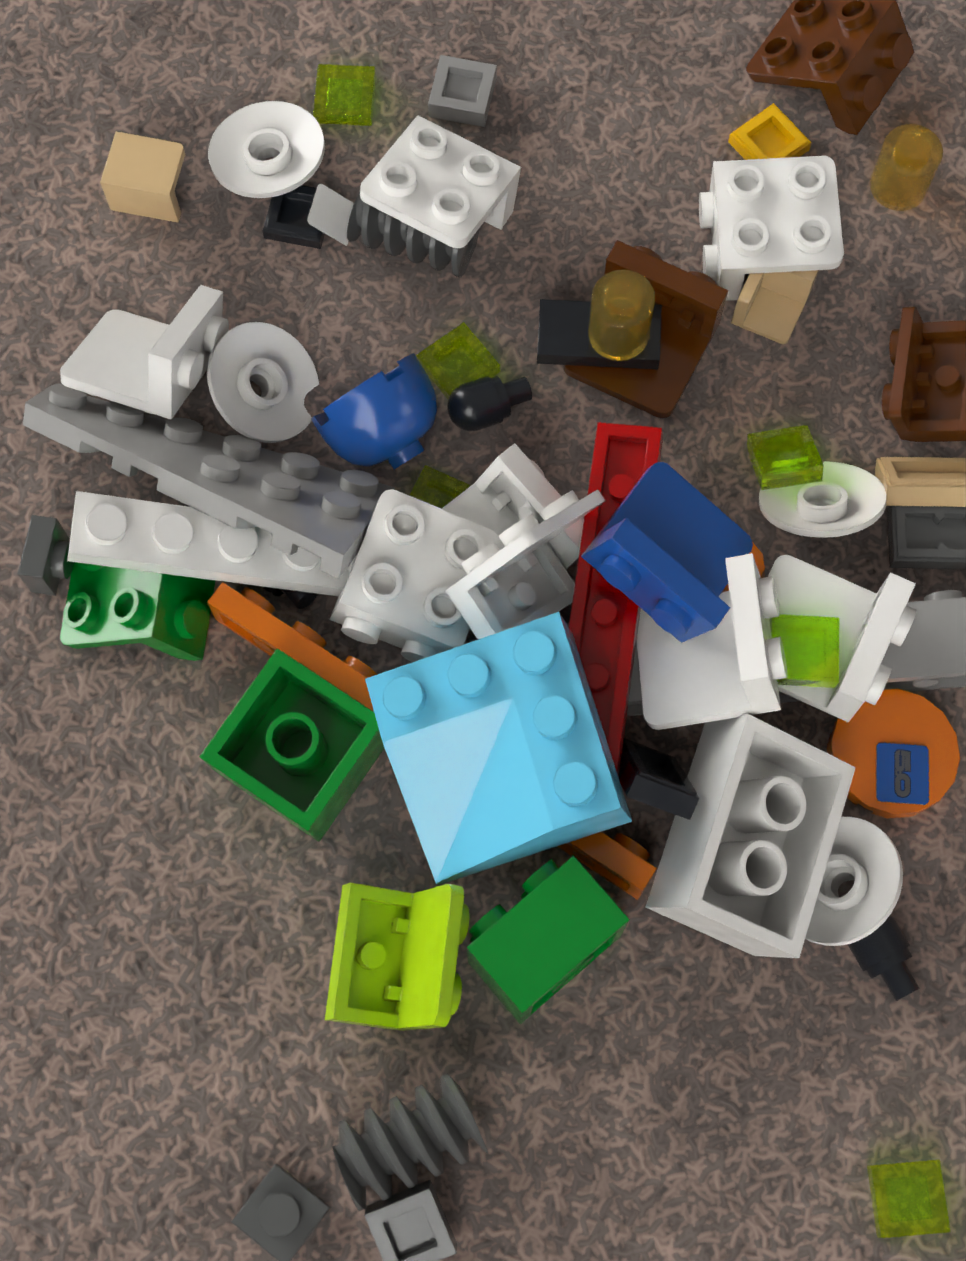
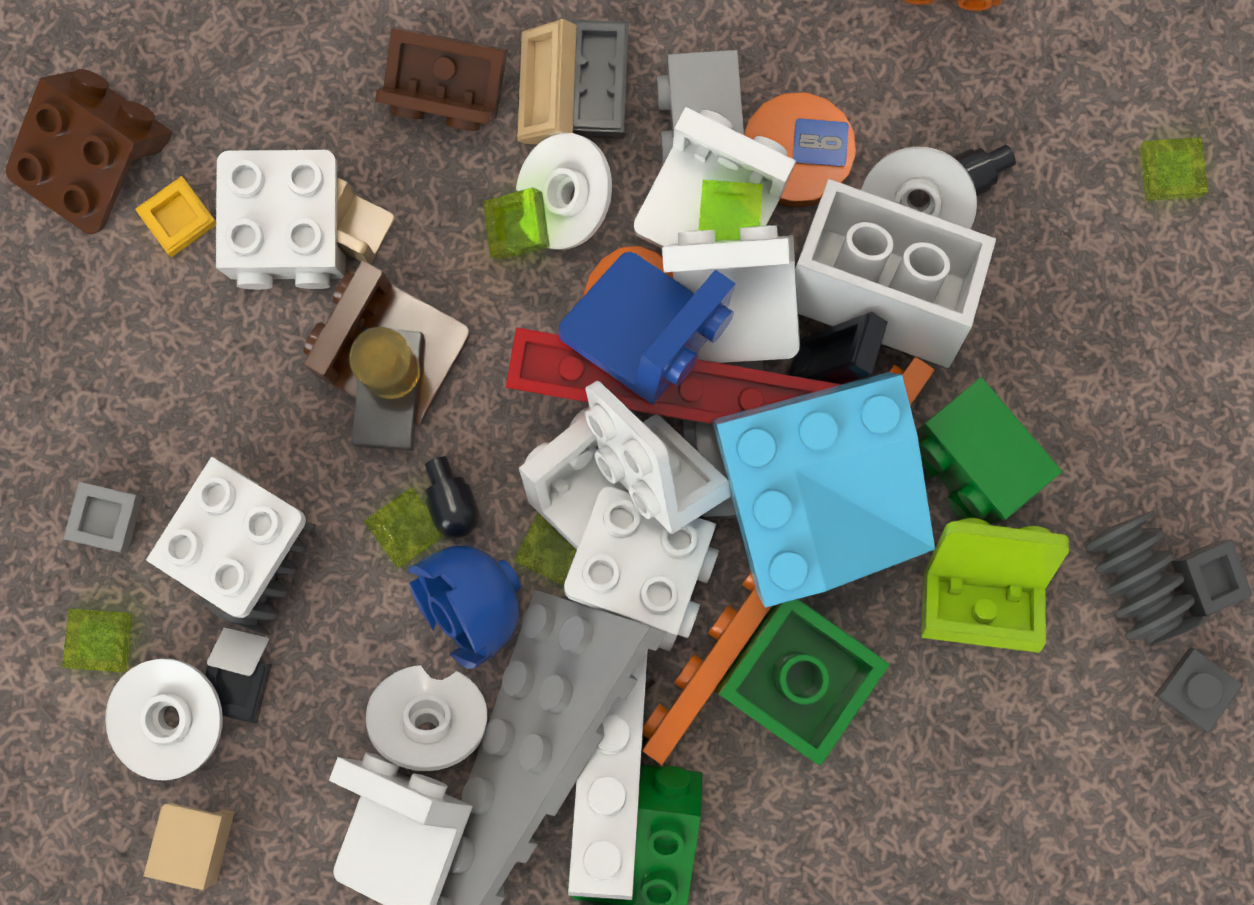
camera: 90 degrees left, 10 degrees up
(906, 167) = (220, 86): clear yellow brick -> none

